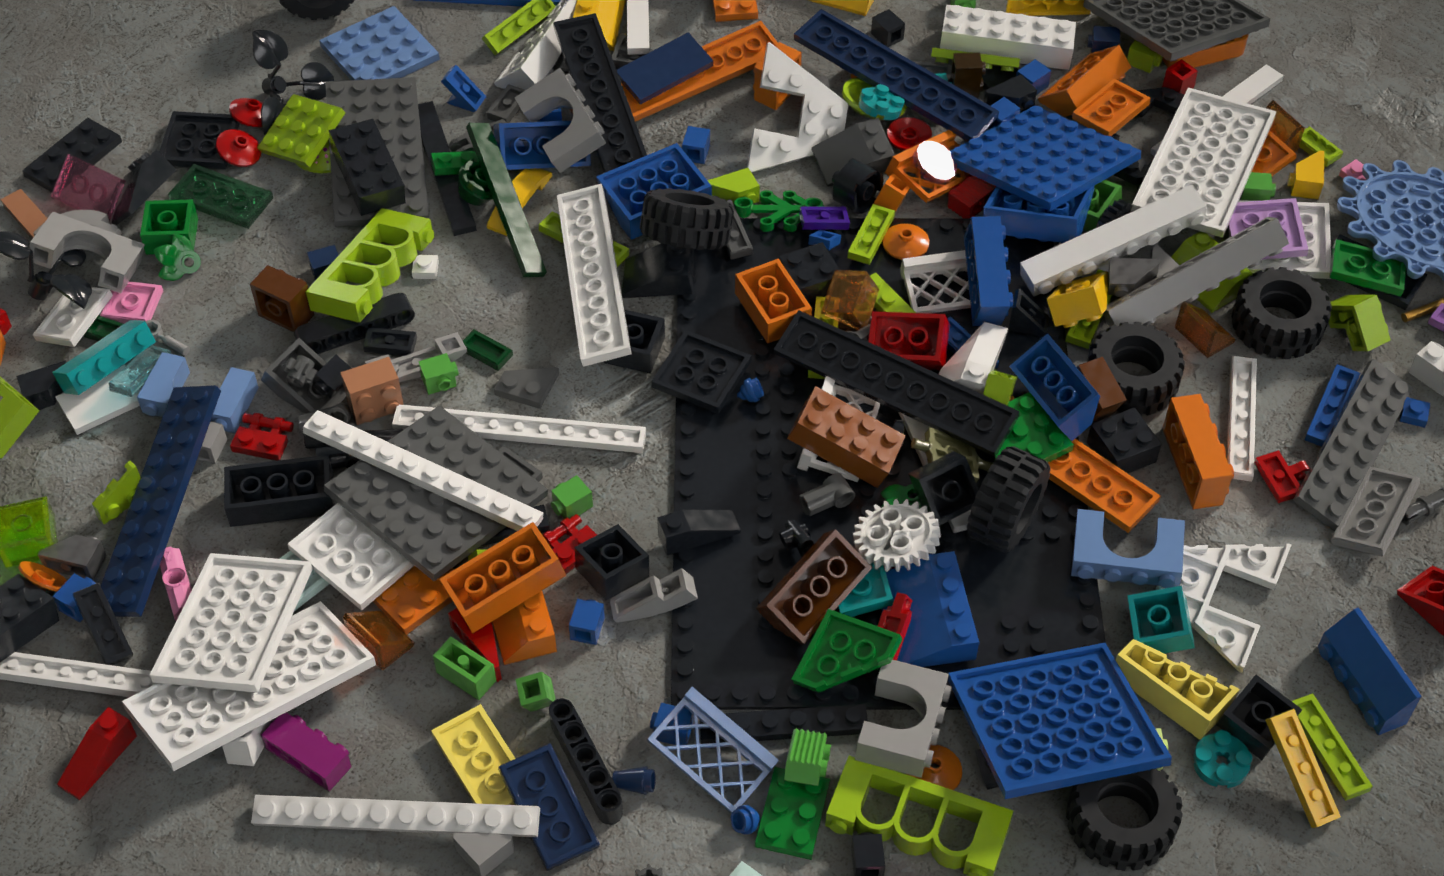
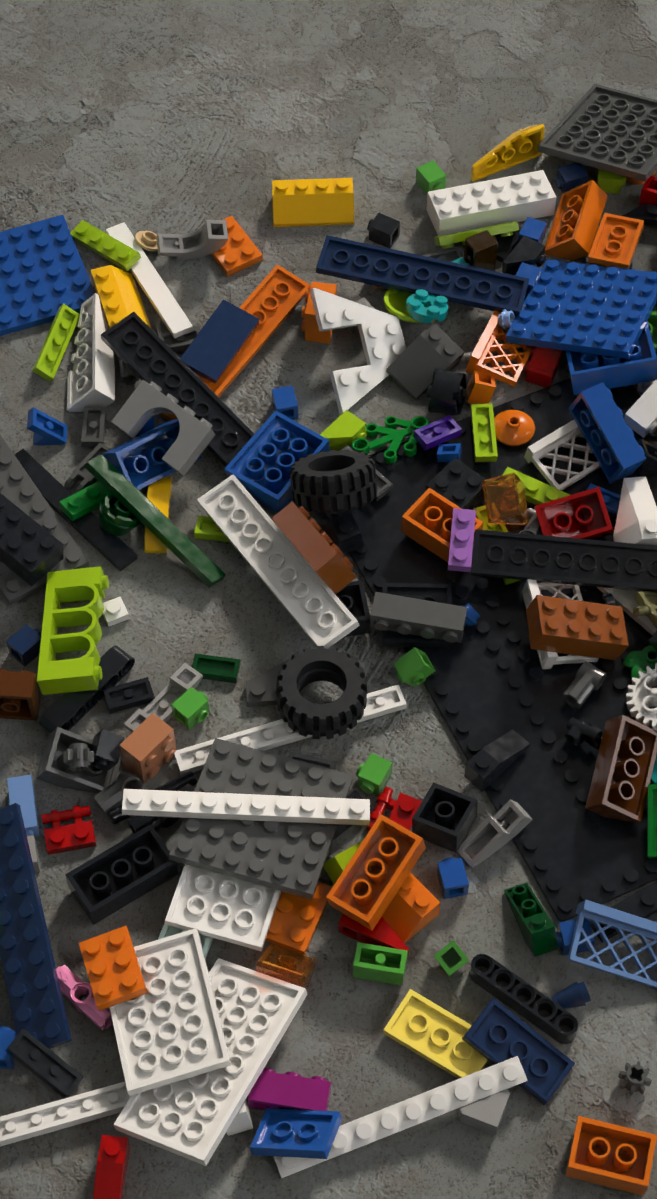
camera: 25 degrees left, 5 degrees up
(213, 565) = (113, 968): none -> orange plate
(284, 785) = (296, 1133): none -> blue plate
(560, 376) = (328, 718): none -> black tyre
(630, 269) = (315, 546): none -> dark orange brick
(640, 692) = (532, 919): none -> dark green slope
(669, 416) = (413, 667): none -> bright green brick
(696, 370) = (418, 617): none -> dark grey brick
(778, 315) = (461, 540): none -> medium lavender plate
(908, 132) = (461, 325): red dish -> none
(935, 162) = (504, 346): tile -> none
(955, 139) = (506, 319): none -> light blue plate

